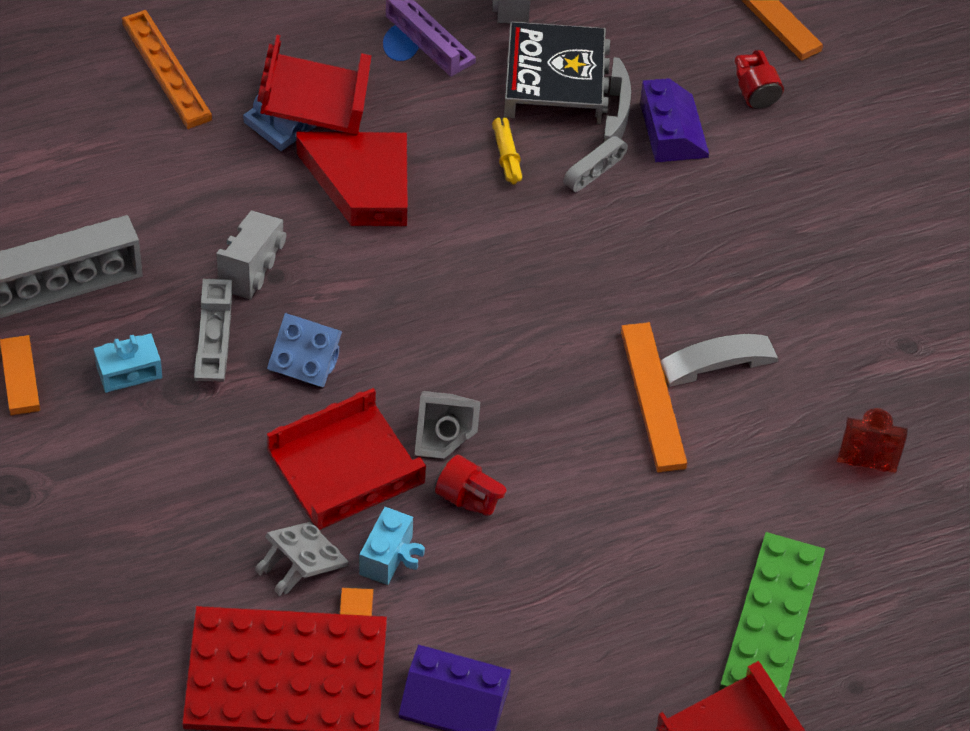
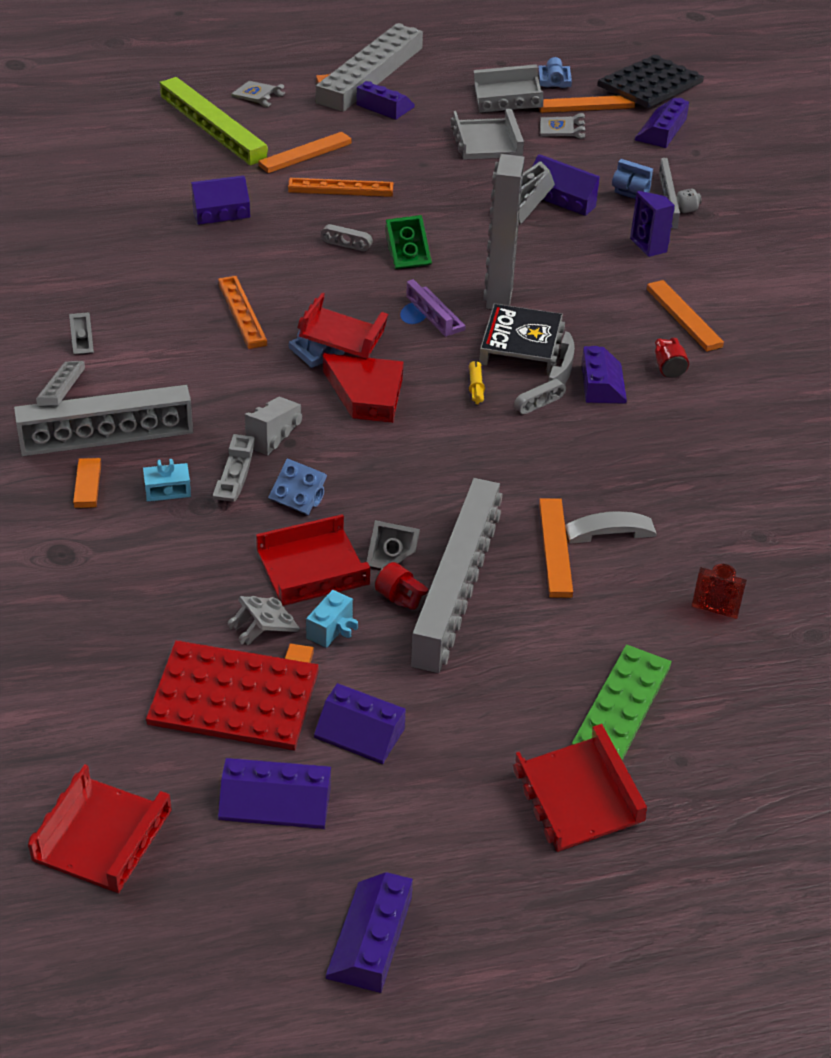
camera: 10 degrees right, 10 degrees down
(539, 462) = (455, 576): none -> light grey brick

